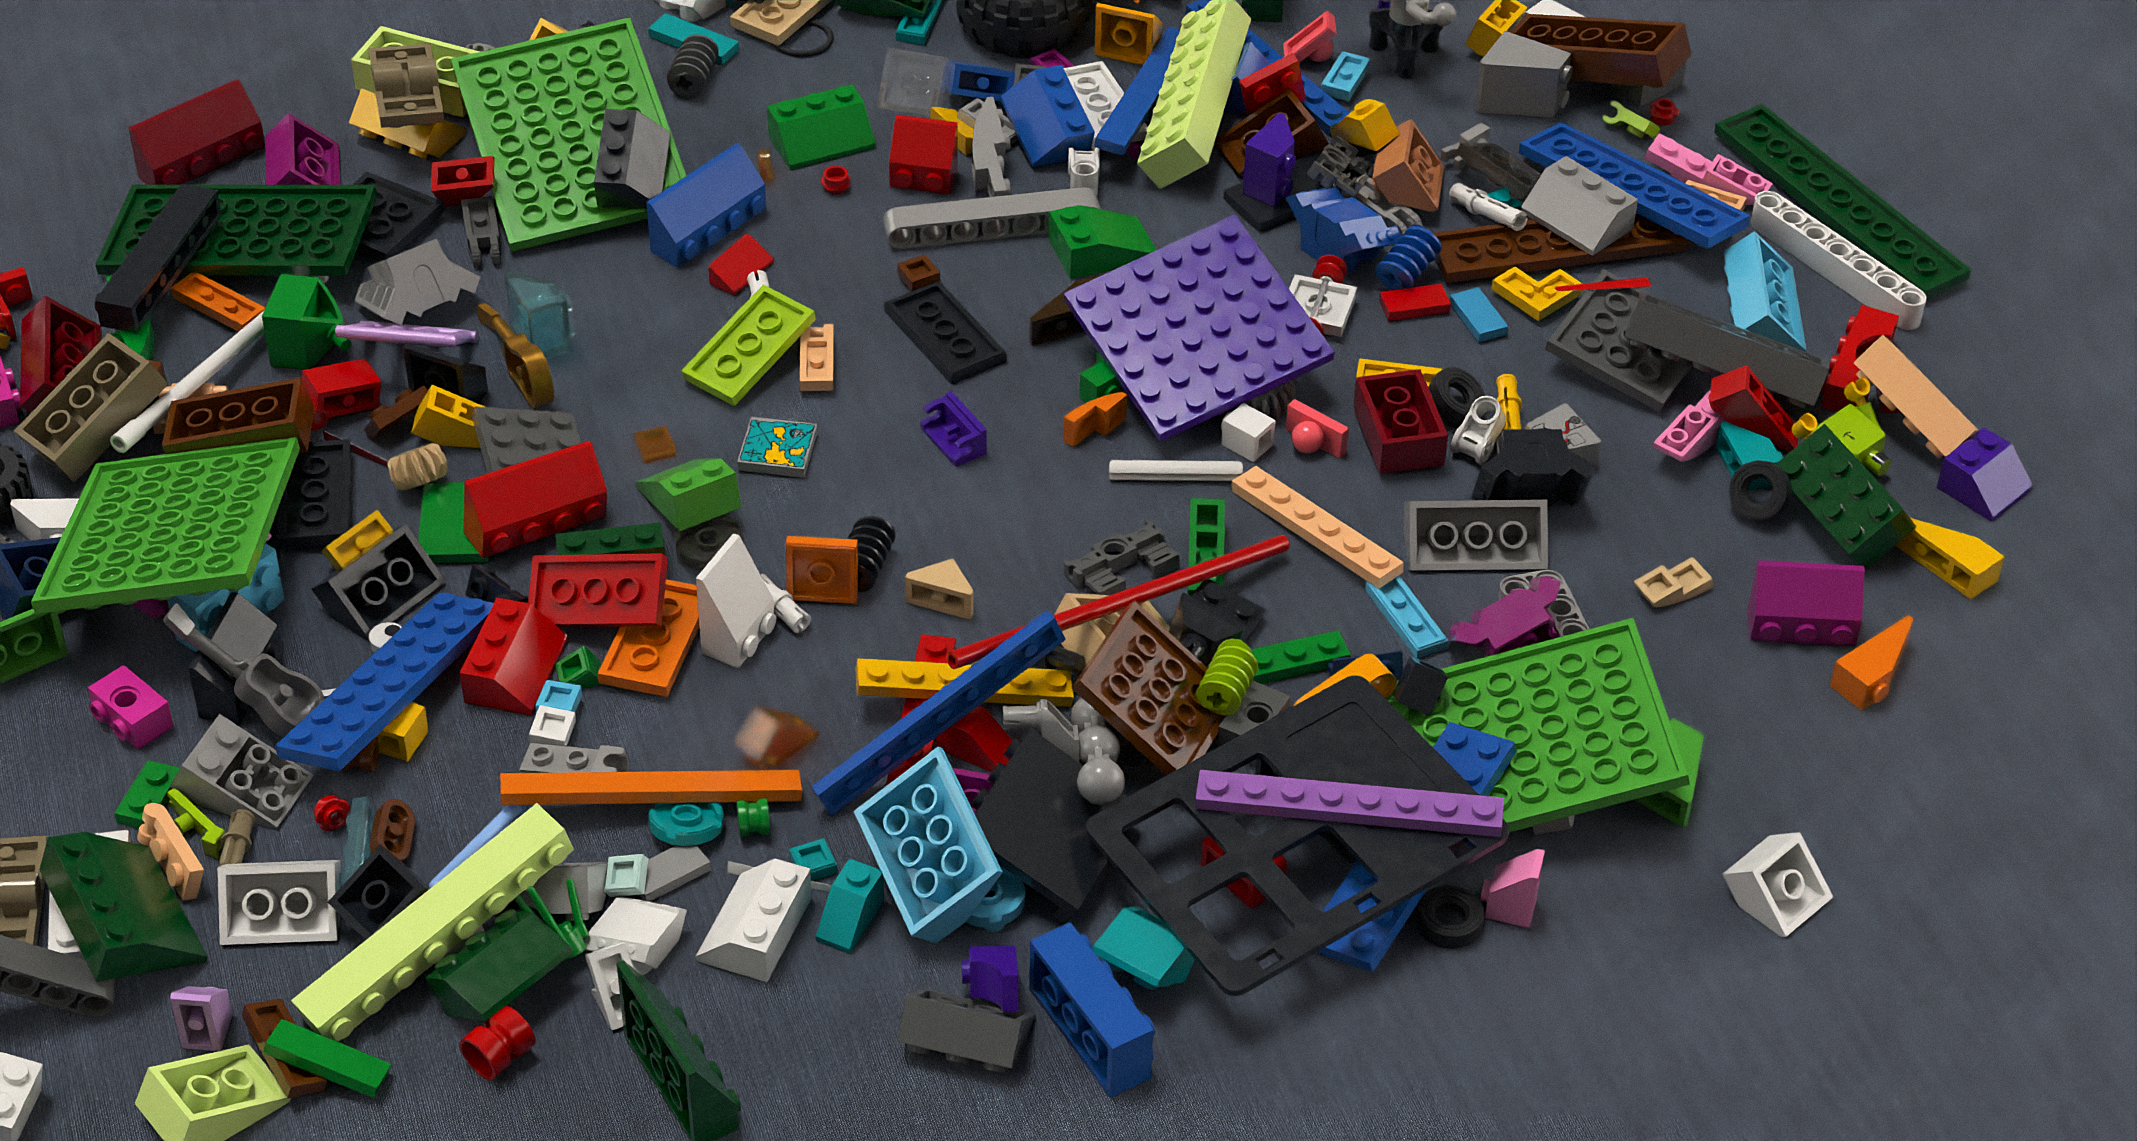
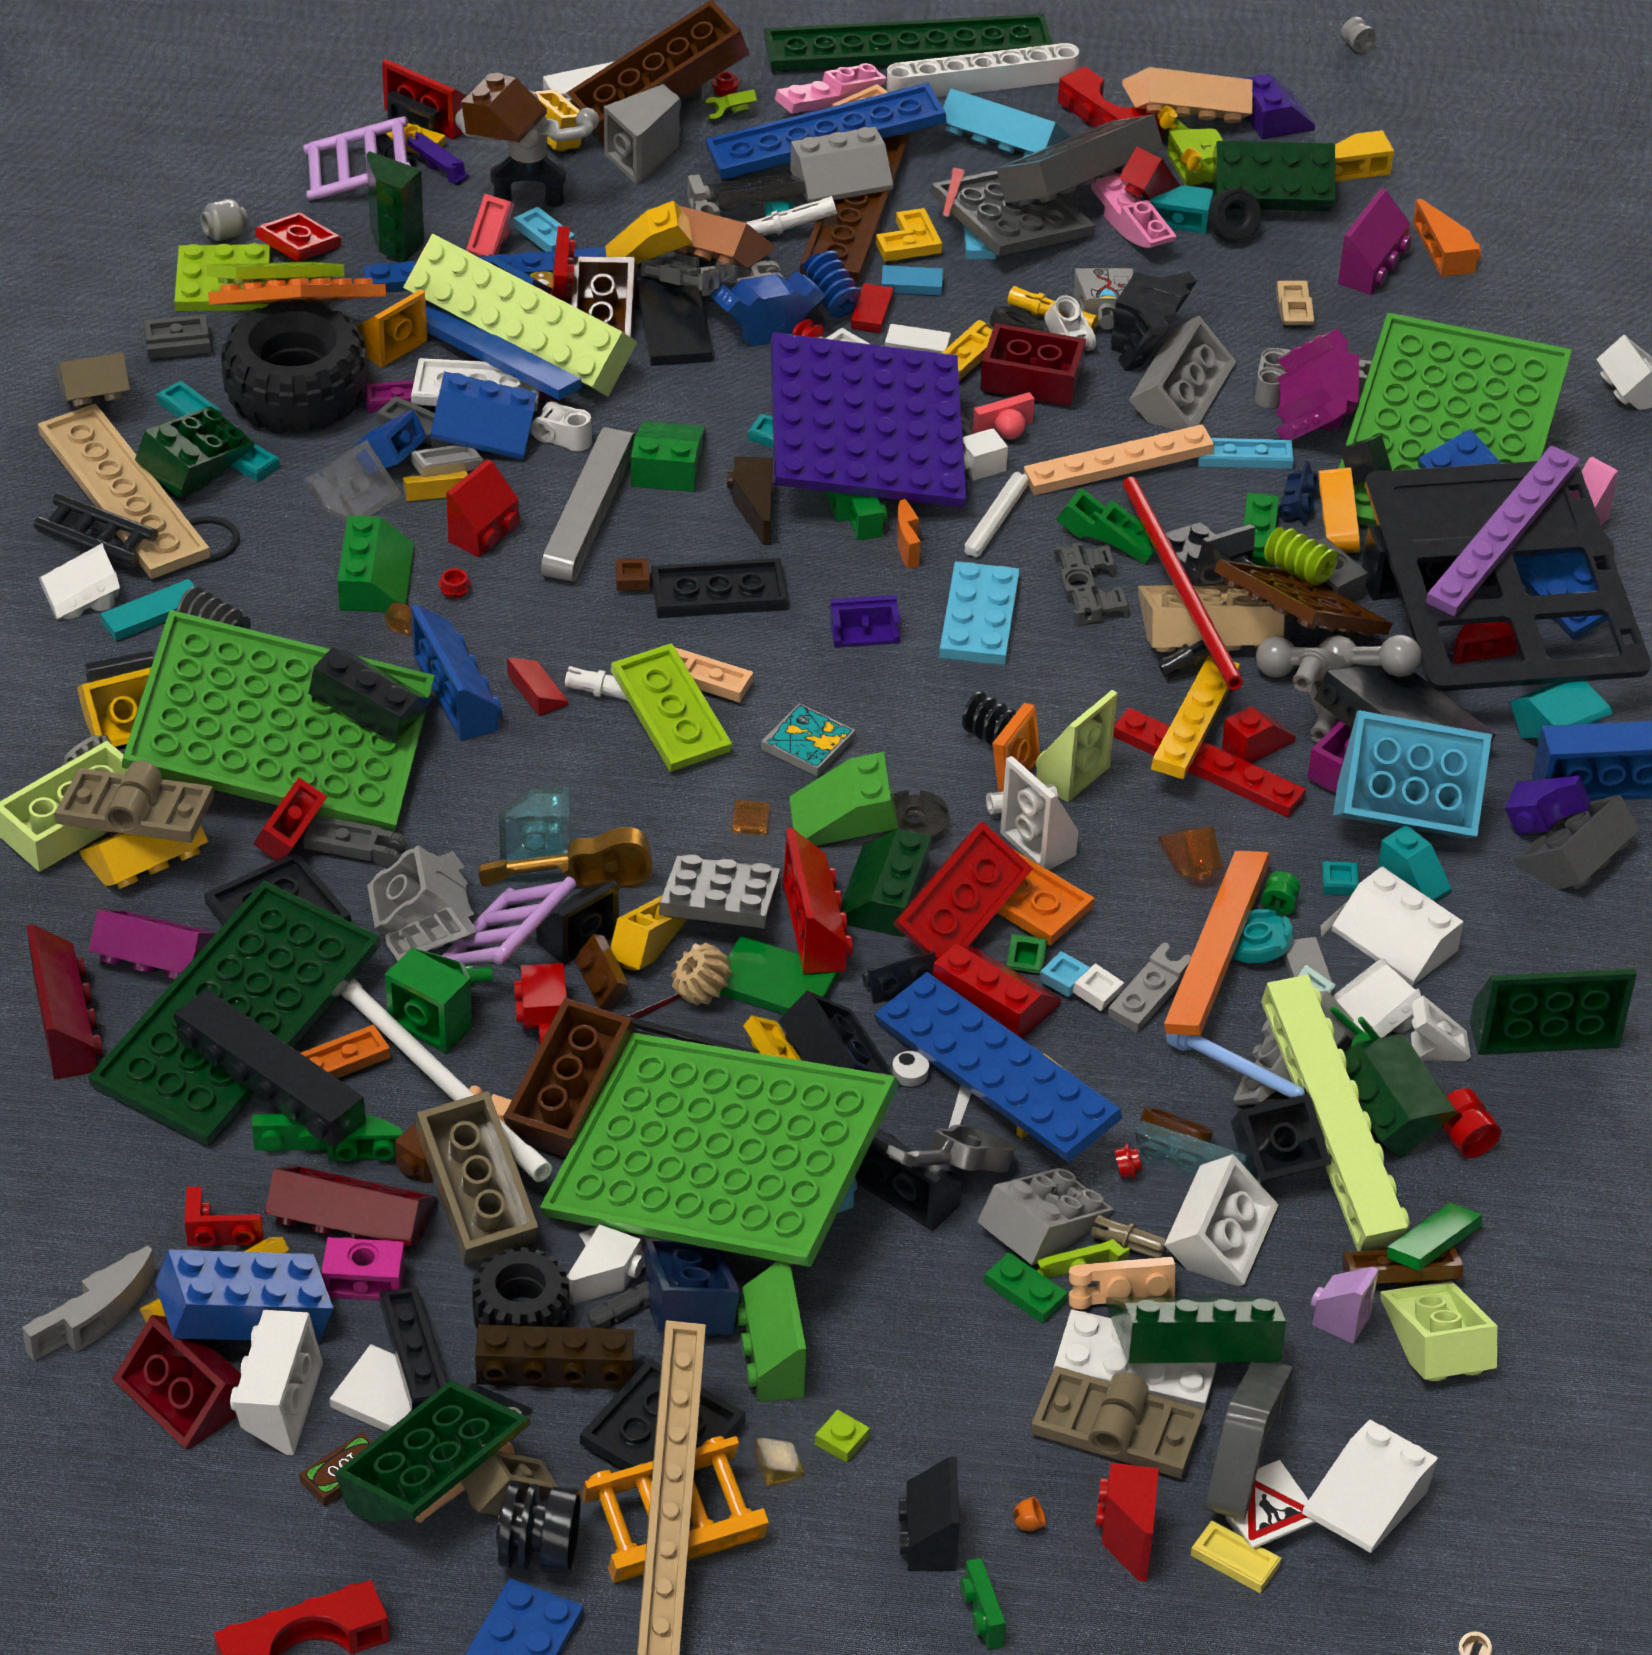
camera: 65 degrees left, 0 degrees up
(130, 707) = (908, 1267): dark pink brick -> none
(845, 608) = (1080, 750): none -> yellowish green slope
(938, 713) = (1259, 738): blue plate -> none
(940, 589) = (1070, 692): tan slope -> none
(989, 151) = (523, 476): light grey slope -> none
(1028, 502) = (979, 613): none -> medium azure plate
(1270, 162) = (665, 302): dark purple slope -> none
(1389, 342) = (917, 338): none -> white tile

